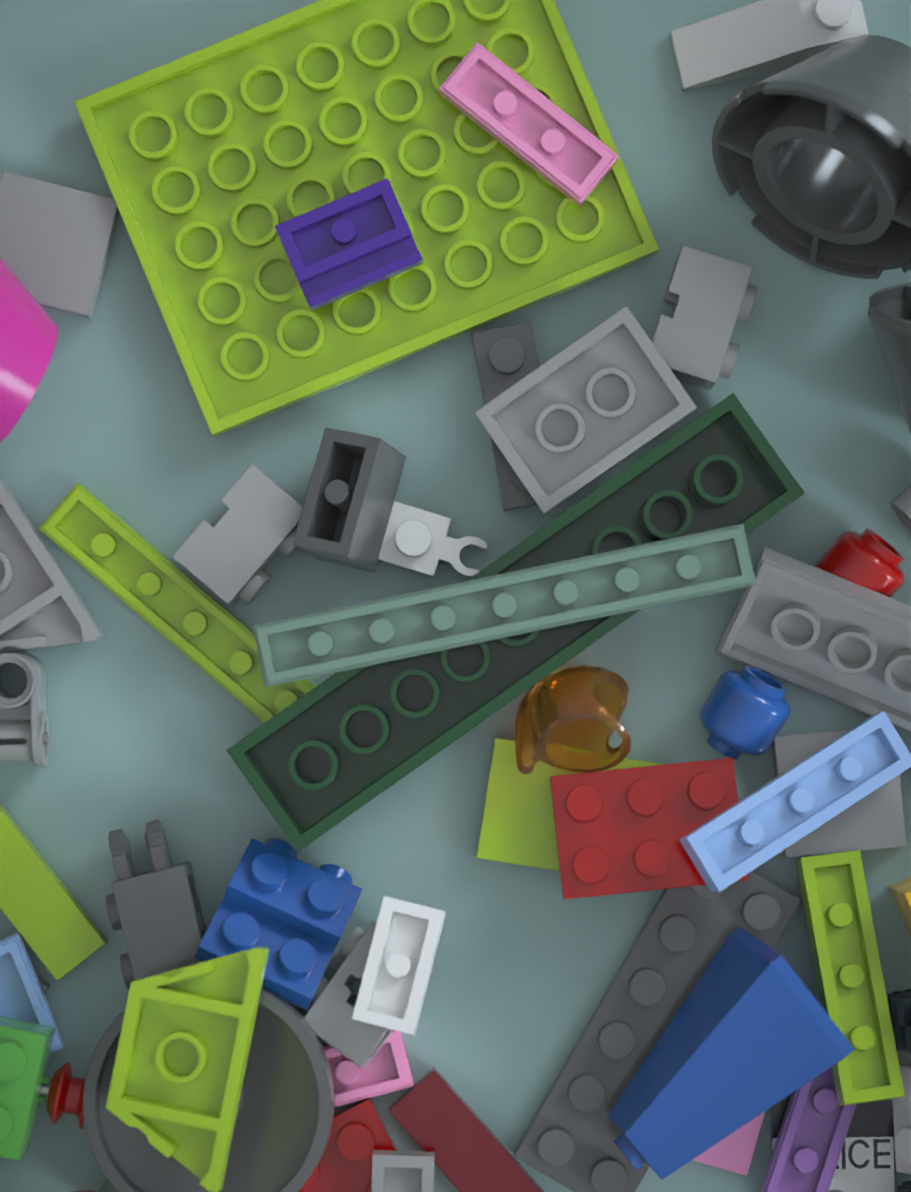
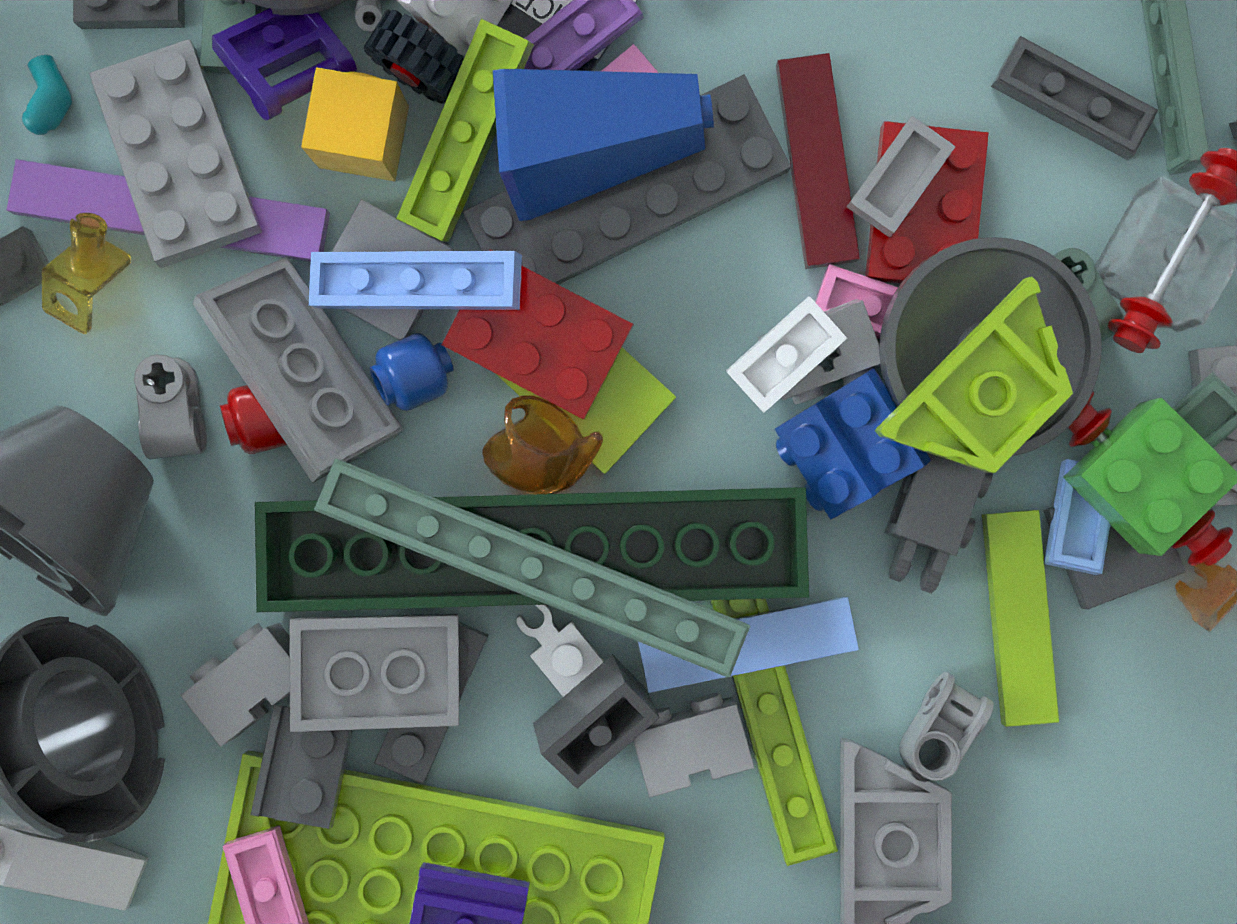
camera: 150 degrees left, 0 degrees up
(235, 680) = (771, 642): none -> light blue tile
(593, 271) = (300, 773): none -> dark grey plate

